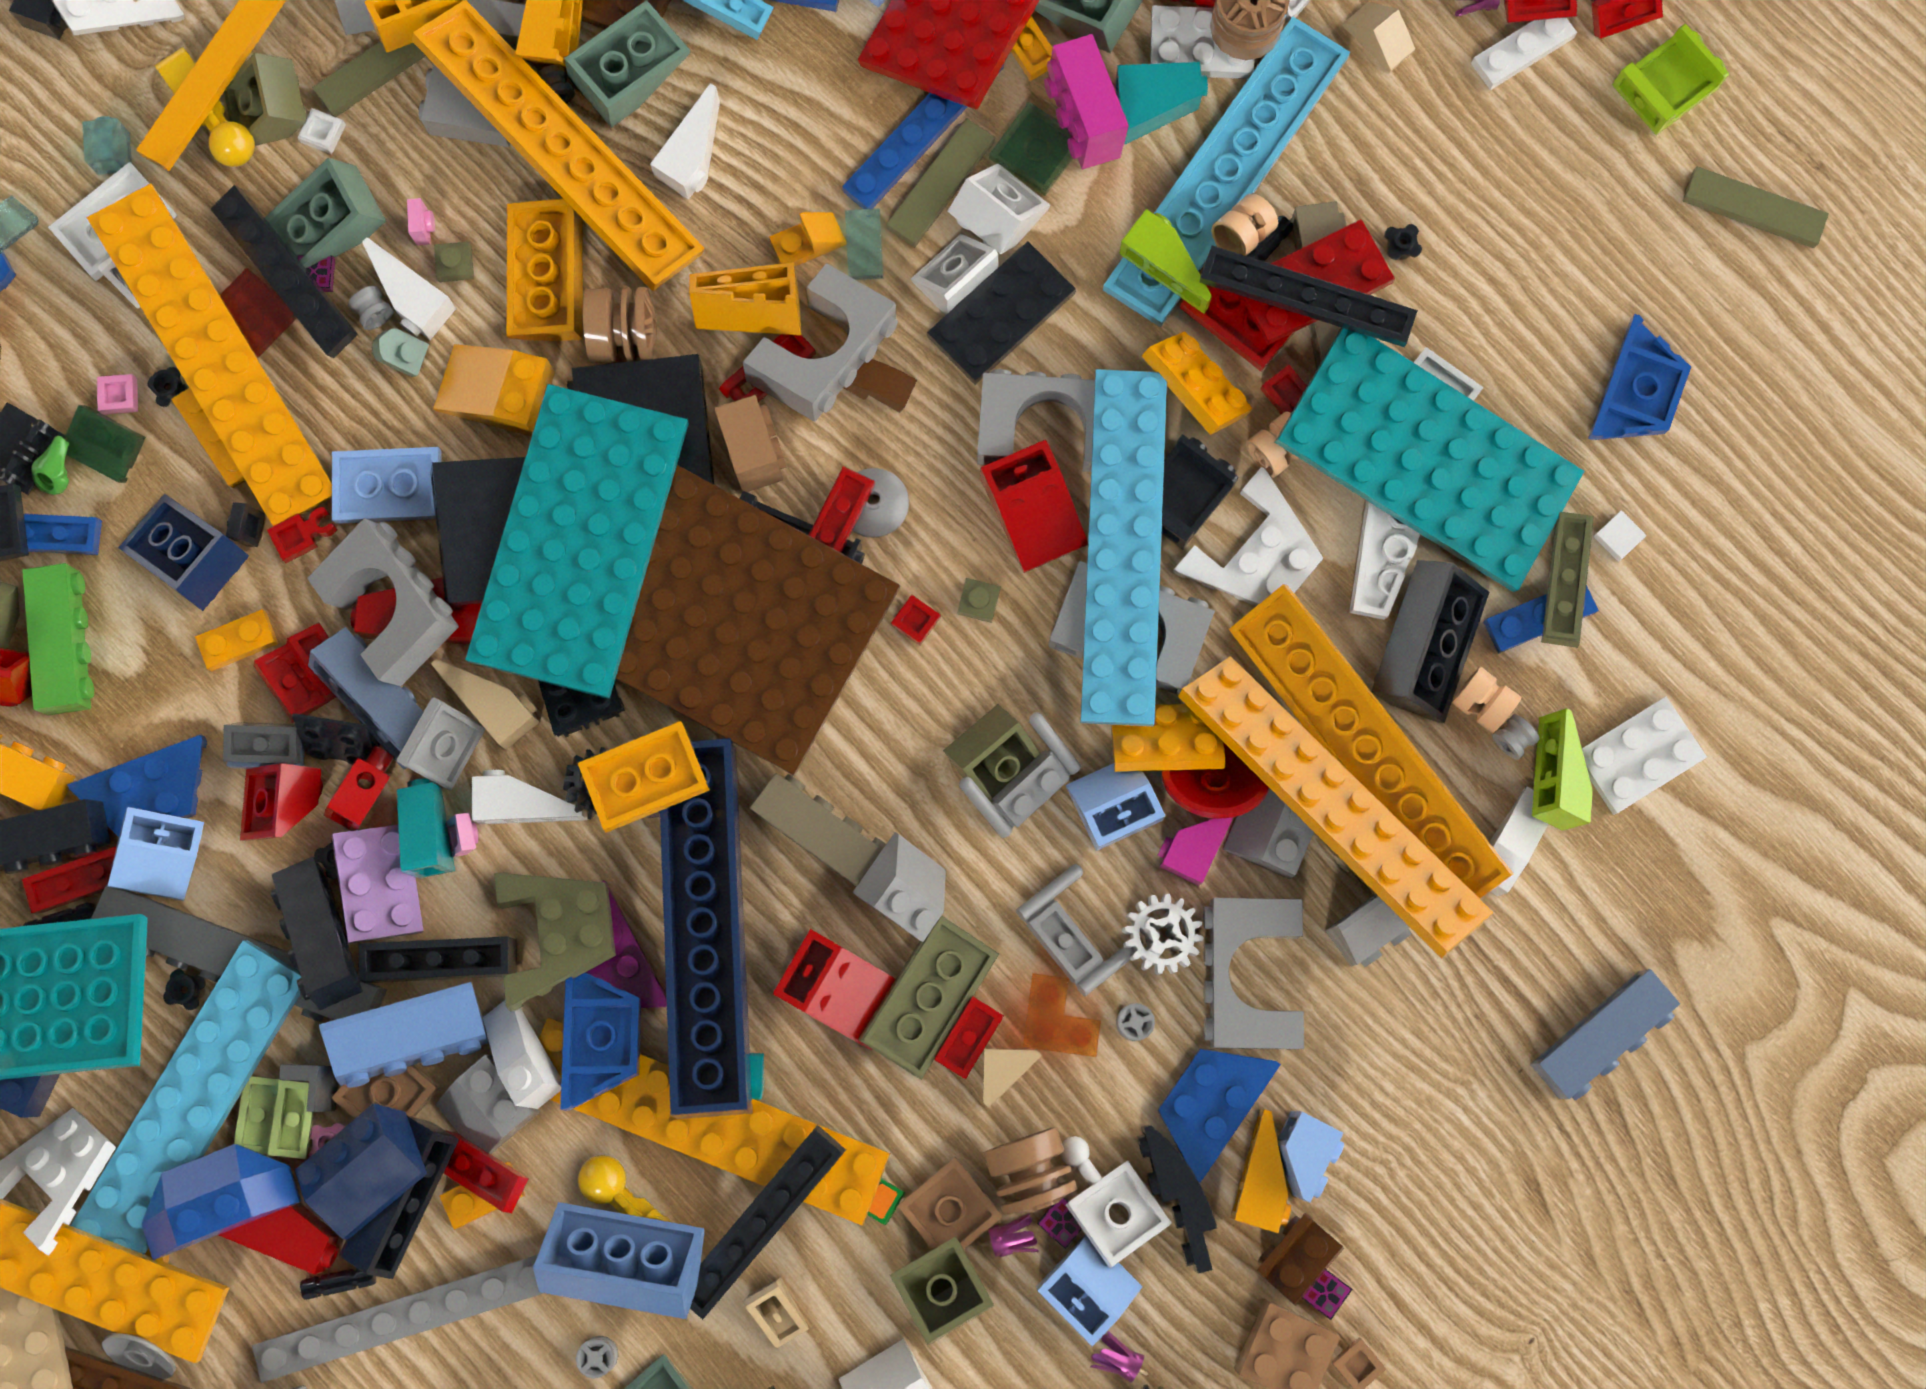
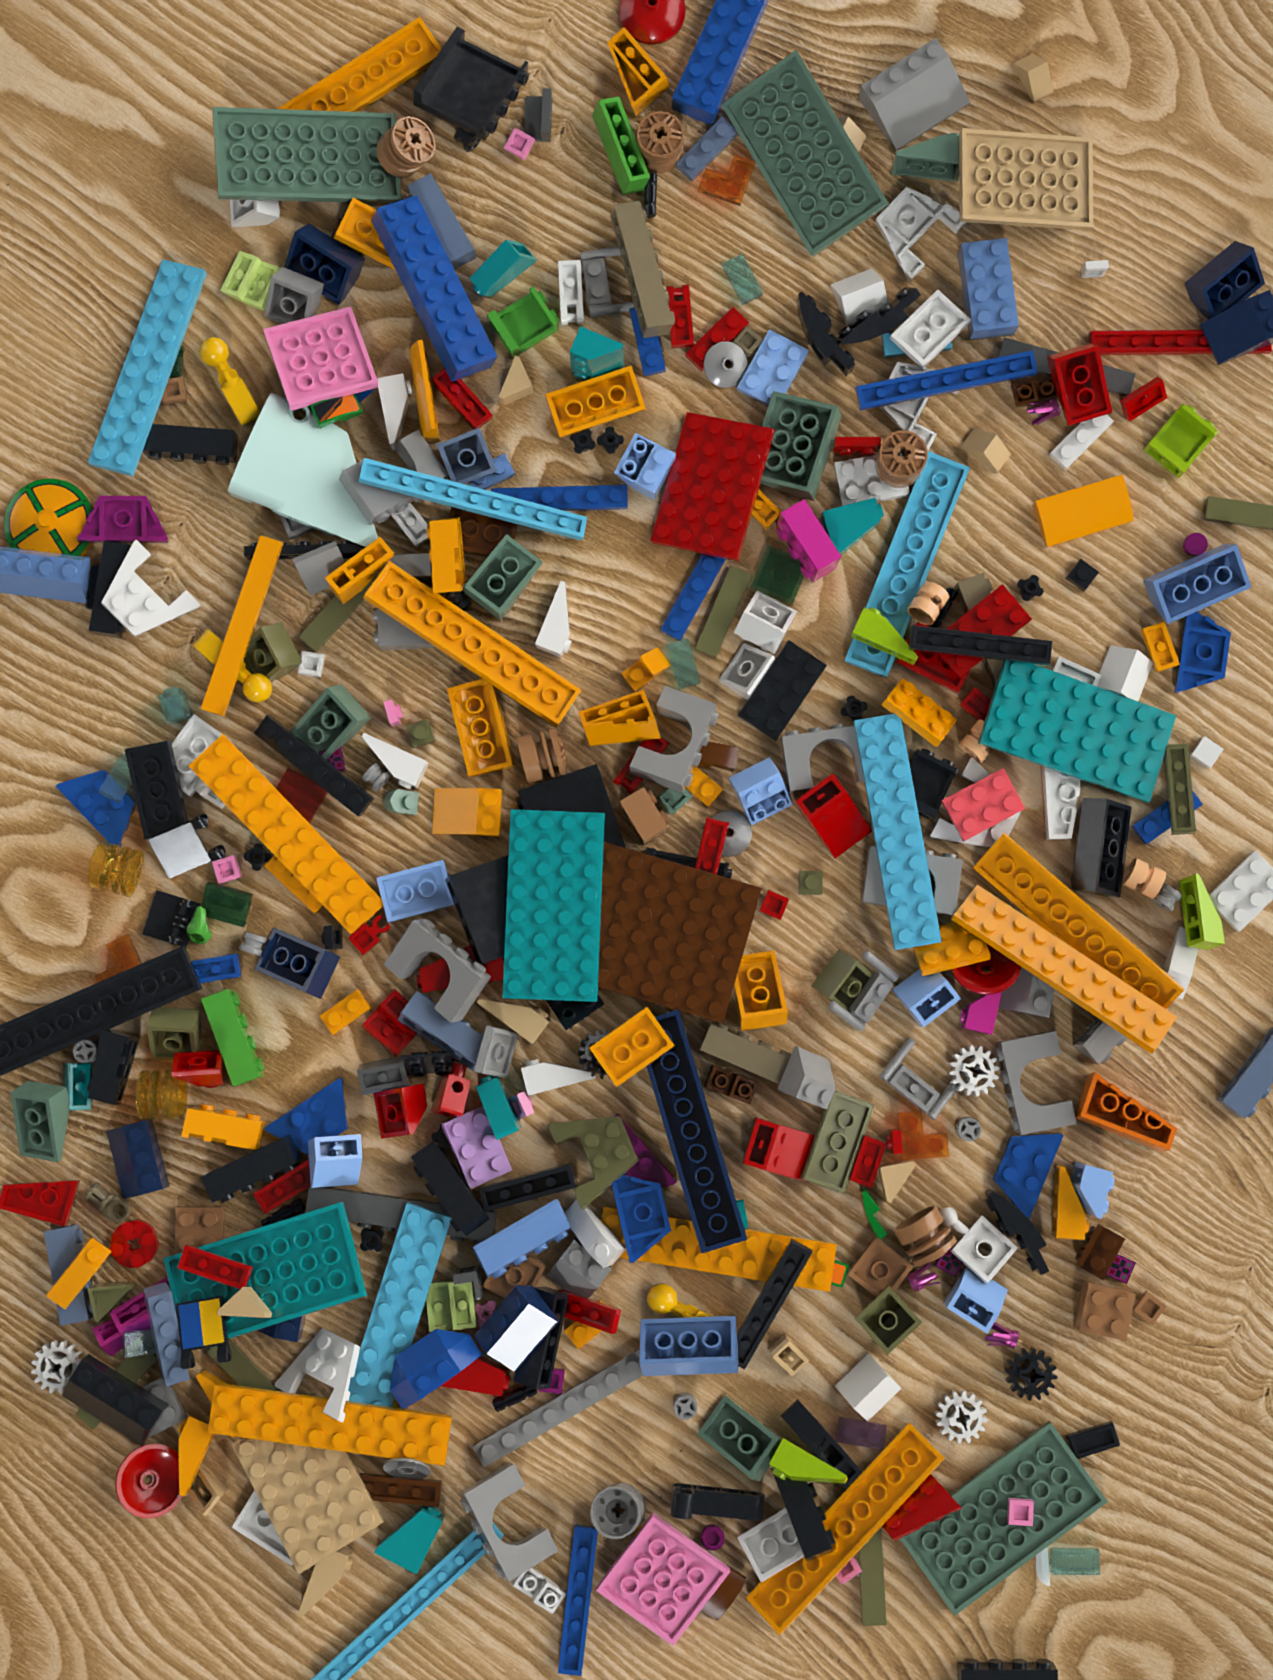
camera: 10 degrees left, 5 degrees up
(45, 255) = (156, 787): none -> black plate
(58, 349) = (182, 848): none -> flag
(125, 508) = (252, 943): none -> light grey wheel
(408, 1273) = (556, 1382): none -> magenta tile
(787, 875) = (730, 1084): none -> reddish brown slope
(801, 433) = (671, 800): none -> sand green plate
(850, 425) = (703, 787): none -> light orange plate
(862, 744) = (759, 992): none -> light orange slope
(934, 449) = (760, 791): none -> light blue slope
(955, 1109) = (870, 1208): none -> green slope
(1016, 1015) = (894, 1141): none -> red plate
(1105, 351) = (853, 702): none -> black plate
(1263, 537) = (983, 804): none -> coral plate
(1377, 1052) = (1117, 1113): none -> orange wedge
(1484, 241) = (1082, 575): none -> black plate
(1506, 149) = (1083, 511): none -> light orange slope
(1521, 390) = (1124, 672): none -> white slope
(1580, 367) = (1160, 647): none -> light orange plate
(1656, 283) = (1197, 583): none -> medium blue slope
(1662, 232) = (1195, 544): none -> magenta tile

